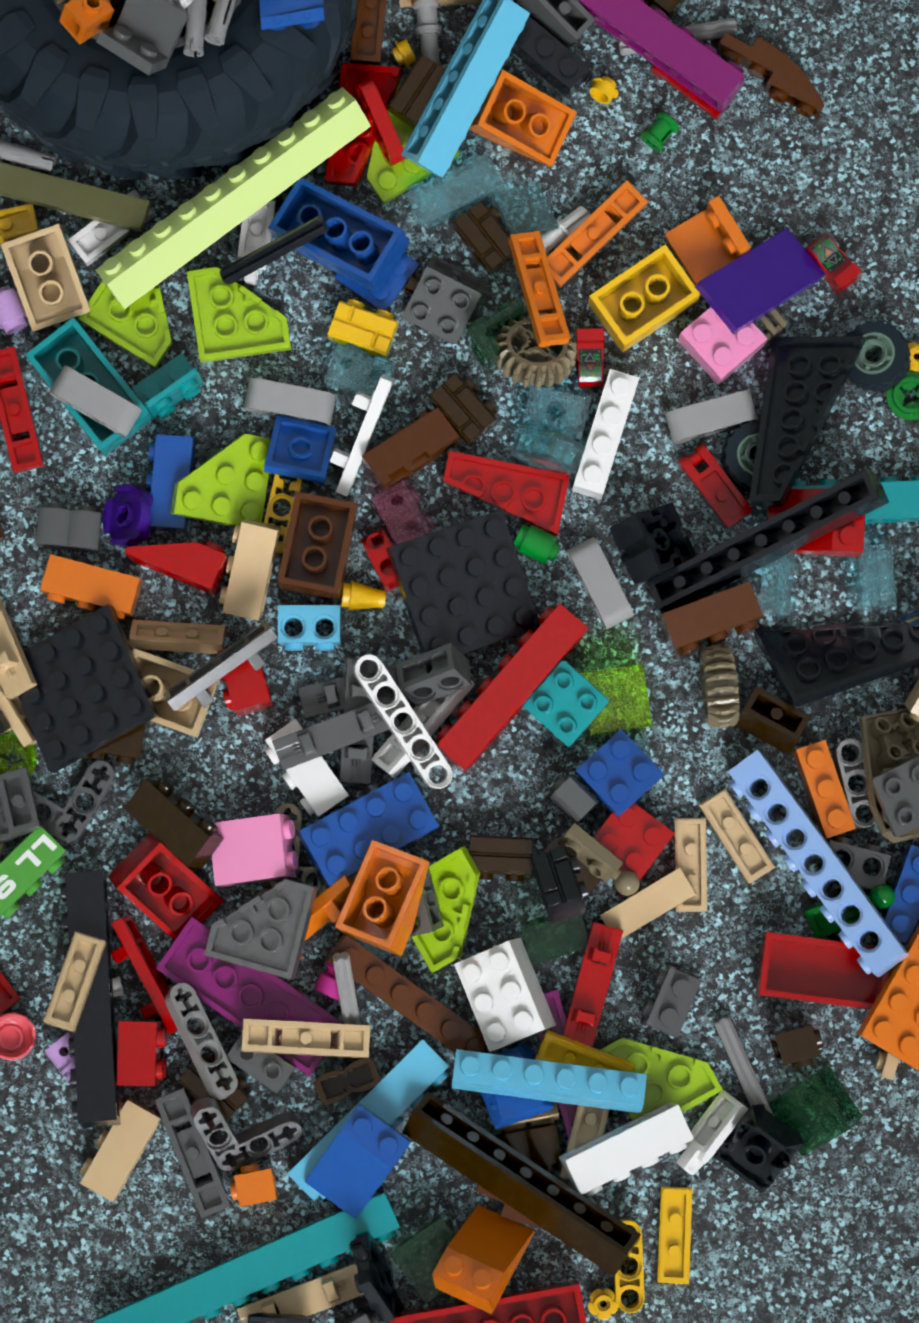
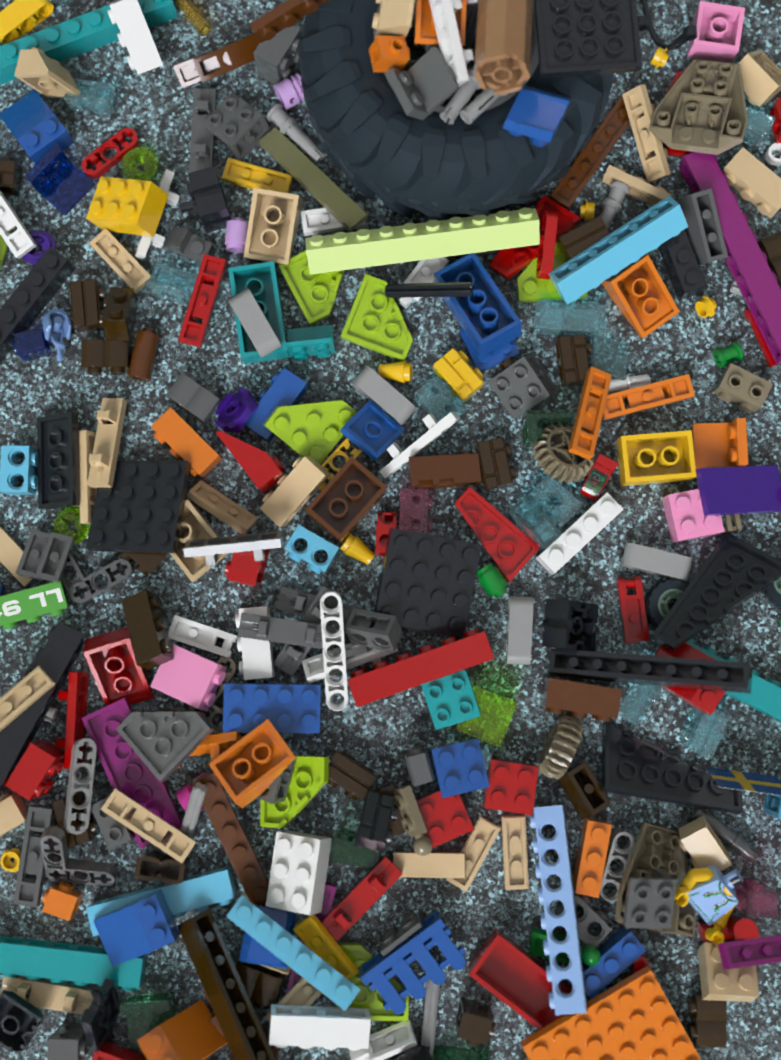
camera: 35 degrees right, 0 degrees up
(160, 1175) = (6, 860): none -> yellow plate
(239, 797) = (201, 636): none -> white plate
(288, 365) = (396, 371): none -> yellow cone
(666, 1026) = (375, 968): none -> blue fence
(689, 763) = (511, 786): none -> red brick
(698, 162) = (742, 388): none -> dark tan brick

